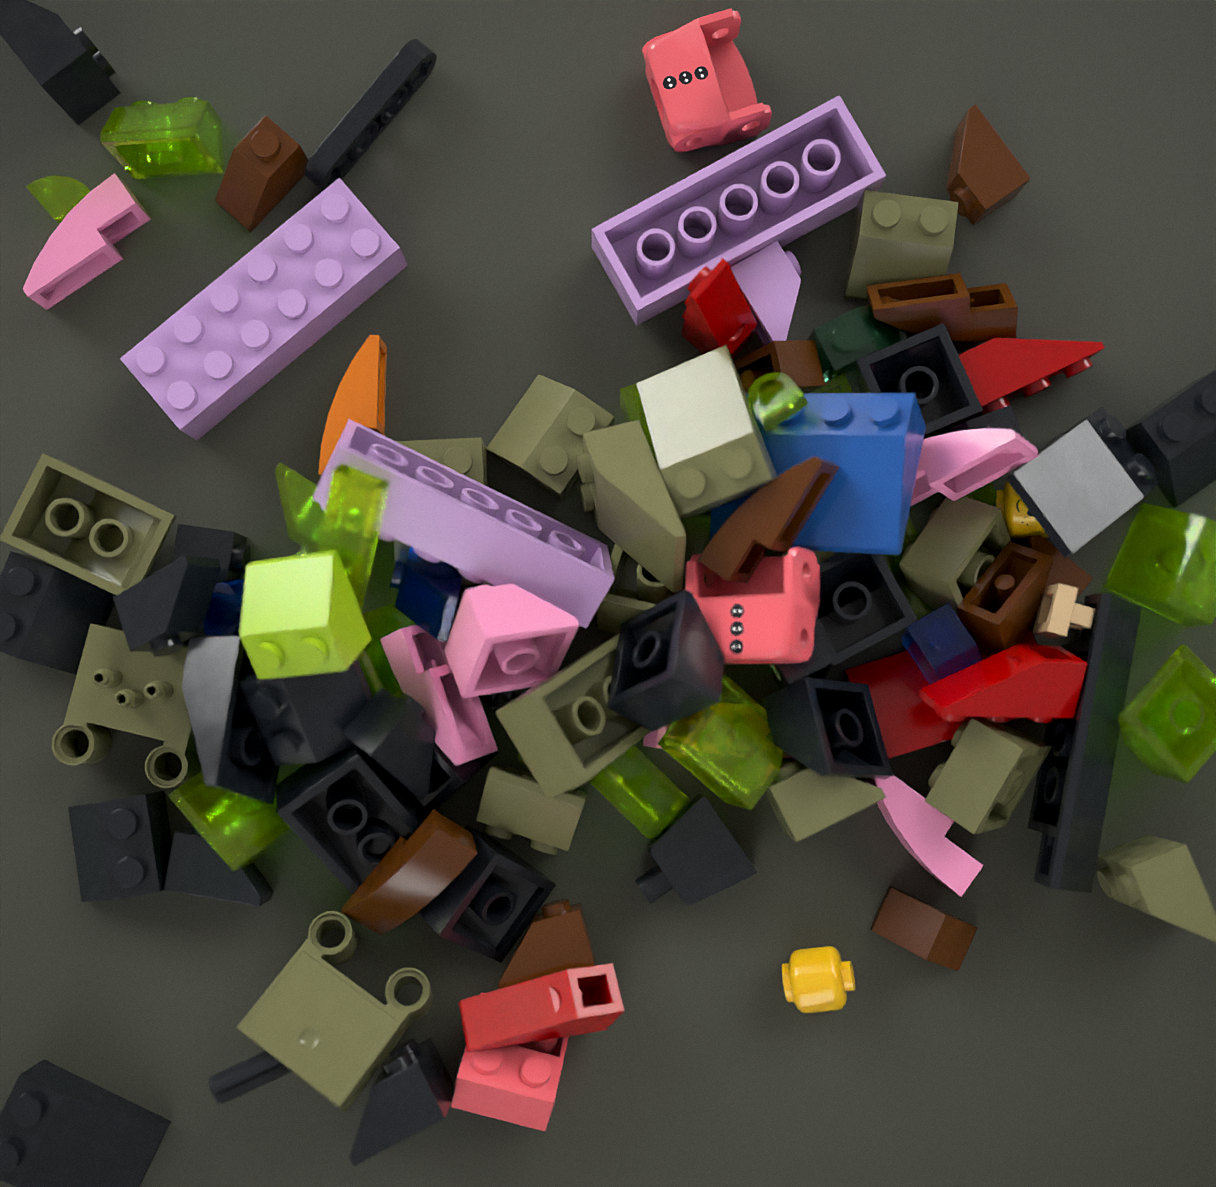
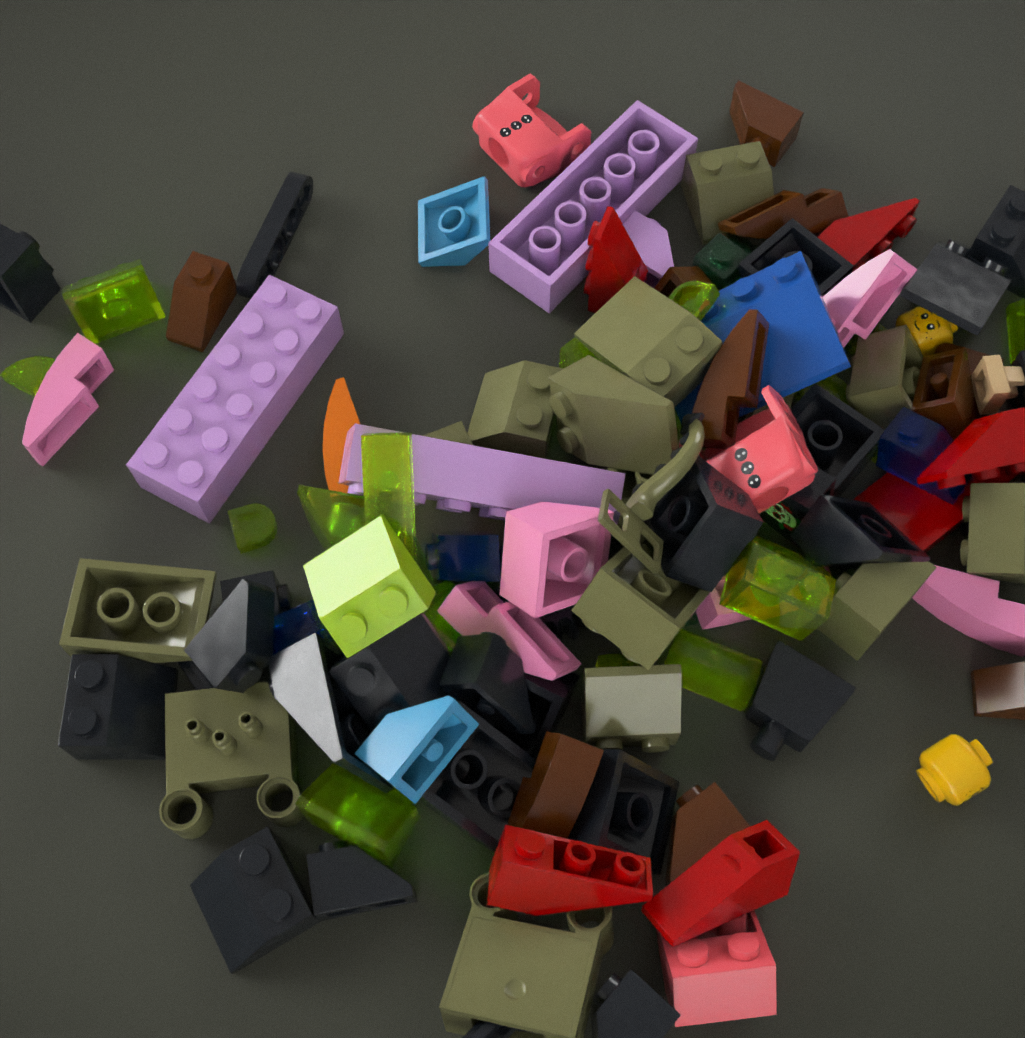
camera: 20 degrees left, 20 degrees down
(237, 462) = (252, 526): none -> clear neon green tile
(290, 792) = (417, 744): none -> dark azure slope
(398, 951) = (560, 875): none -> red slope
(573, 173) = (454, 224): none -> dark azure slope
(623, 616) = (647, 494): none -> olive piece

